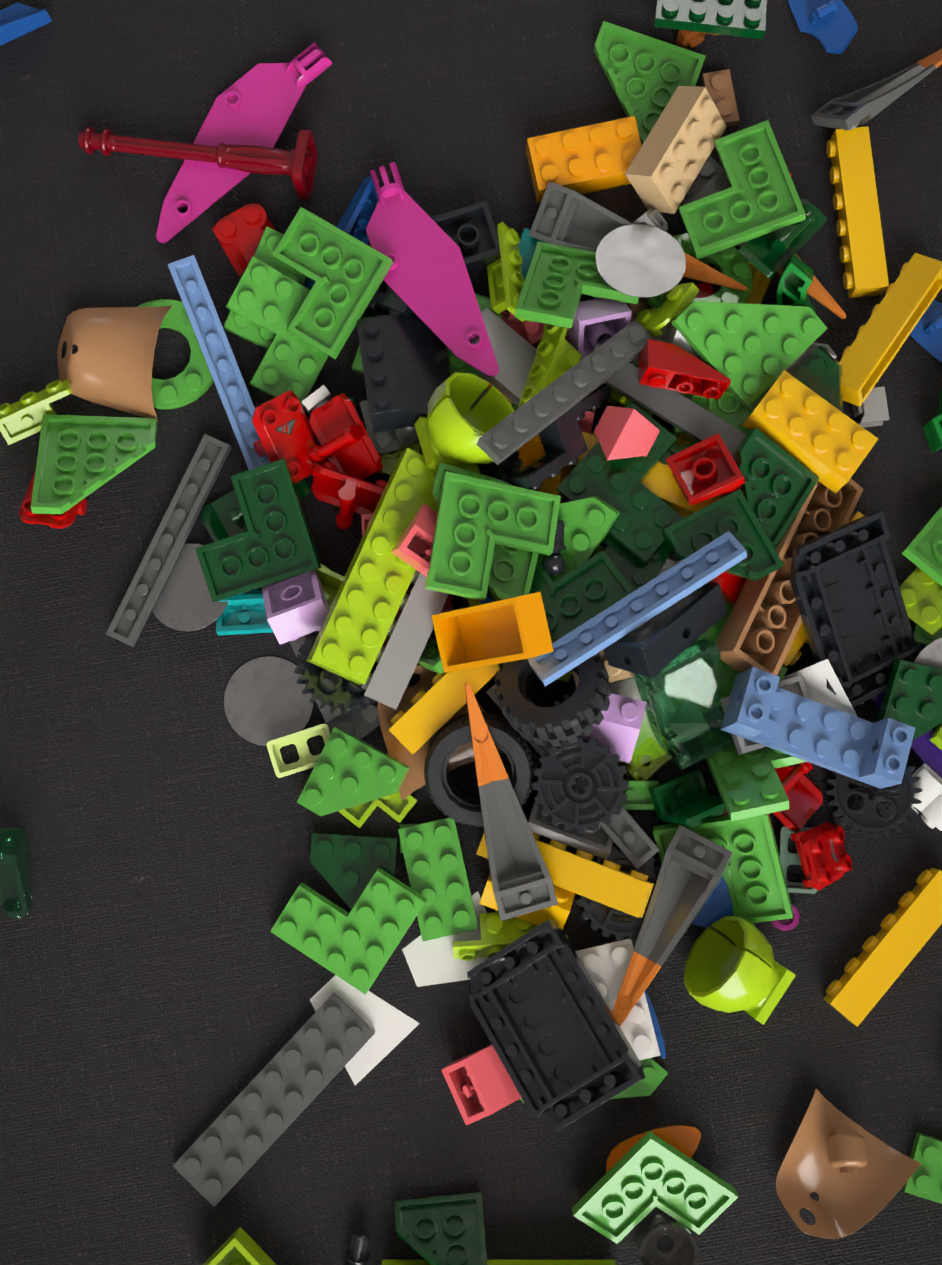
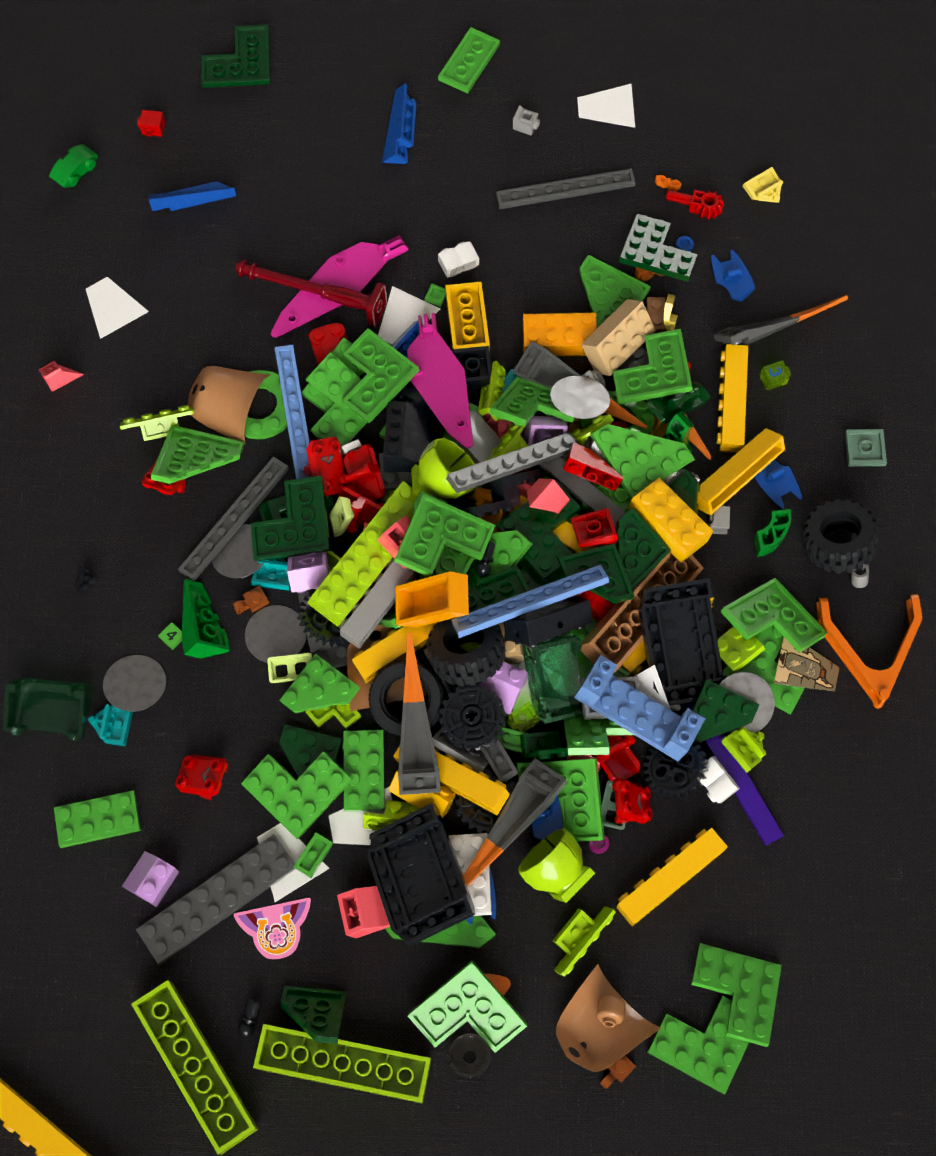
camera: 10 degrees right, 15 degrees down
(68, 879) = (112, 725): none -> teal slope
(80, 1020) = (97, 819): none -> bright green plate
(84, 814) = (134, 683): none -> flat silver sticker
(121, 734) = (171, 635): none -> bright green tile
(159, 715) = (200, 626): none -> green wedge
(175, 1092) = (150, 878): none -> lavender slope
(212, 933) = (201, 775): none -> red shield
(225, 657) = (253, 599): none -> dark orange plate
(316, 508) = (341, 508): none -> yellowish green piece
(343, 166) = (401, 313): none -> white sticker
(363, 1120) = (275, 927): none -> sticker
(389, 129) = (436, 295): none -> bright green tile
(394, 1014) = (313, 855): none -> bright green plate
(410, 64) = (458, 259): none -> white brick
(443, 157) = (467, 315): none -> yellow brick
(744, 100) = (669, 319): none -> light yellow slope
(783, 1055) = (578, 935): none -> lime bracket
(859, 1239) = (618, 1071): none -> dark orange plate
(912, 165) = (775, 375): none -> clear neon green brick

